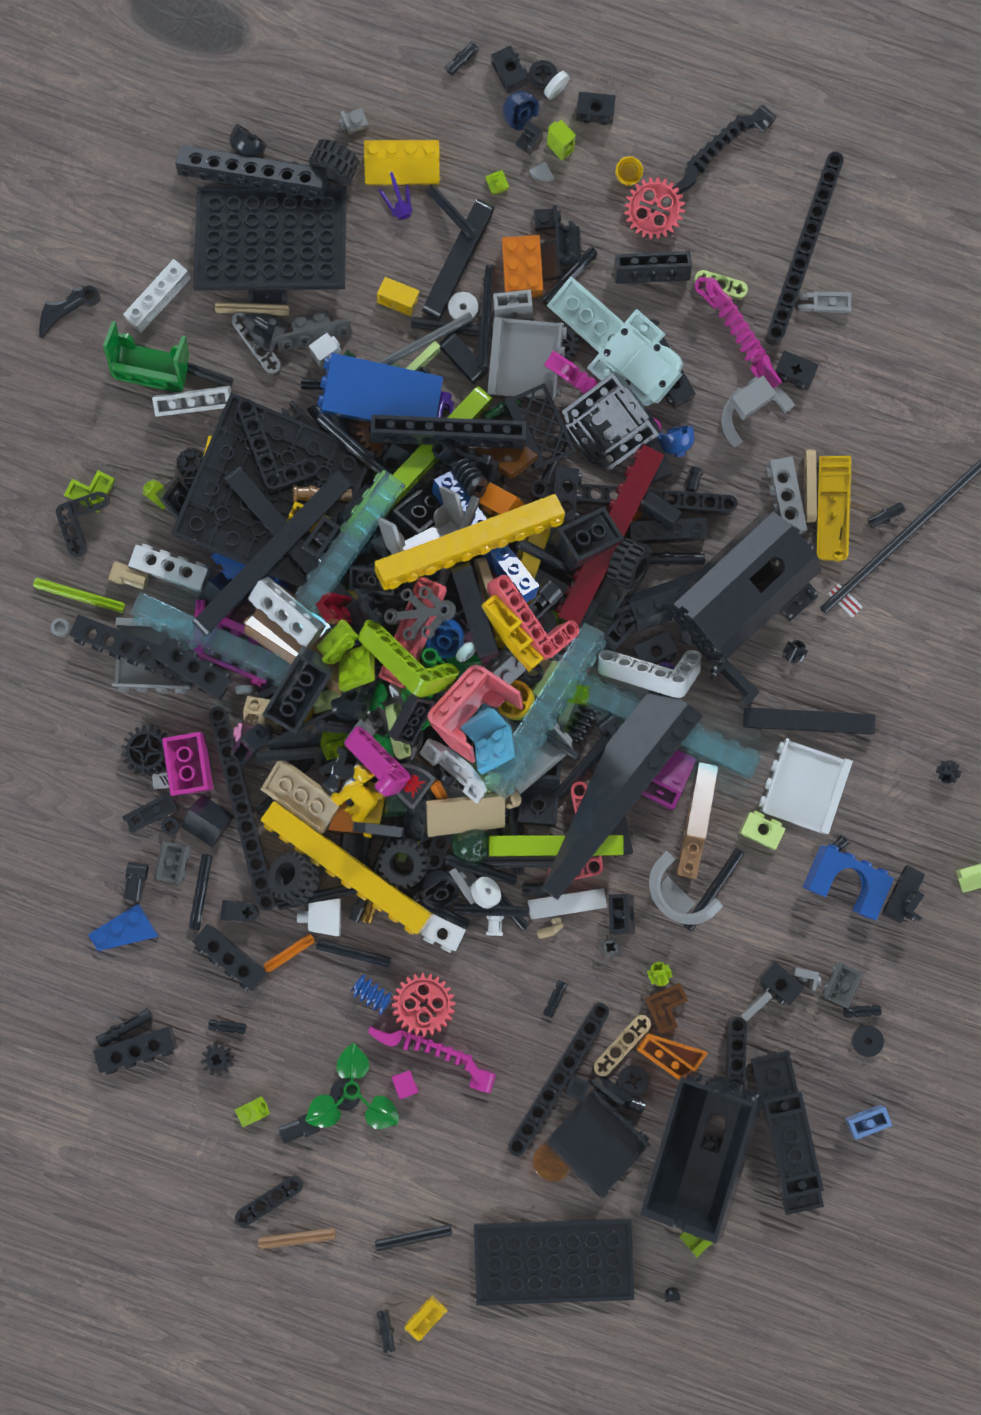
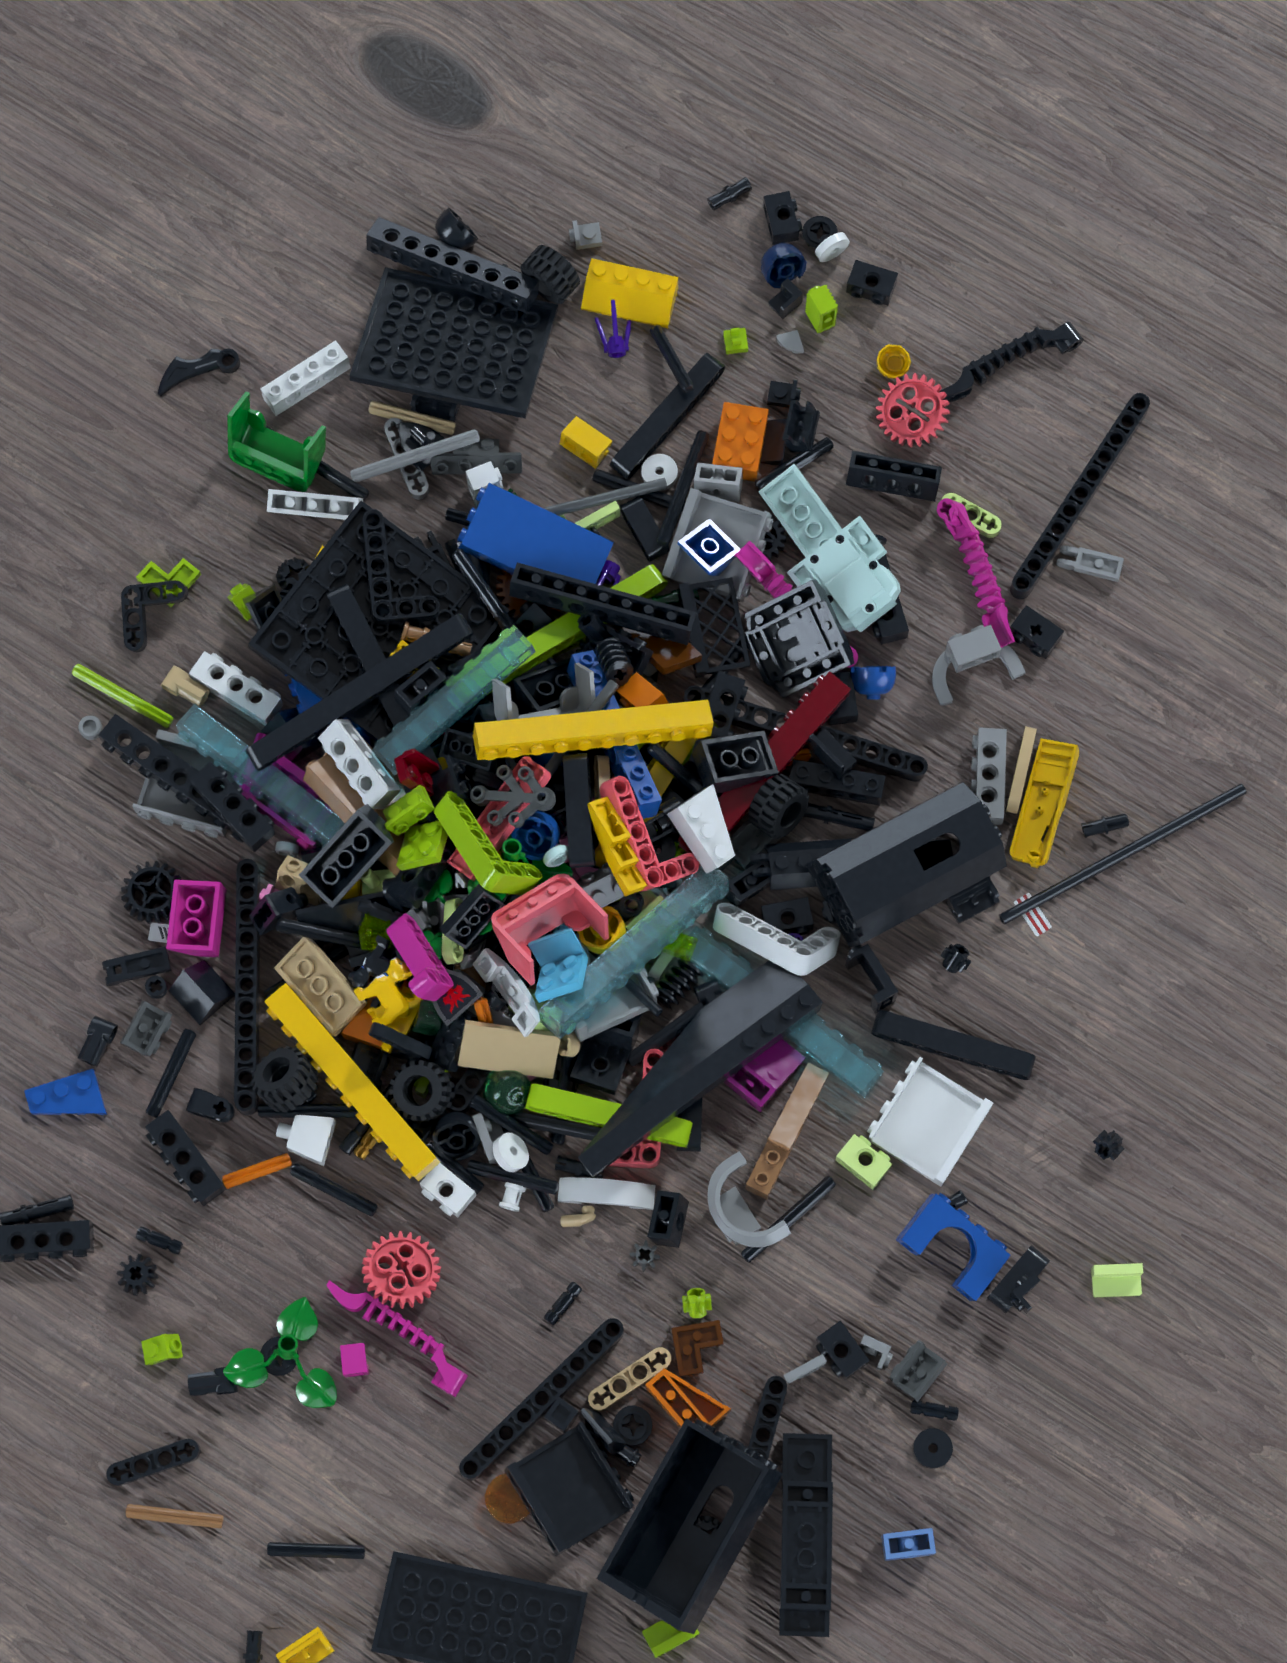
camera: 15 degrees right, 10 degrees down
(263, 341) = (415, 455): none -> light grey axle
(371, 994) = (341, 1242): blue piece -> none
(521, 363) = (709, 548): none -> blue slope
(576, 599) = (704, 829): none -> white wedge
(694, 478) = (884, 729): black pin -> none

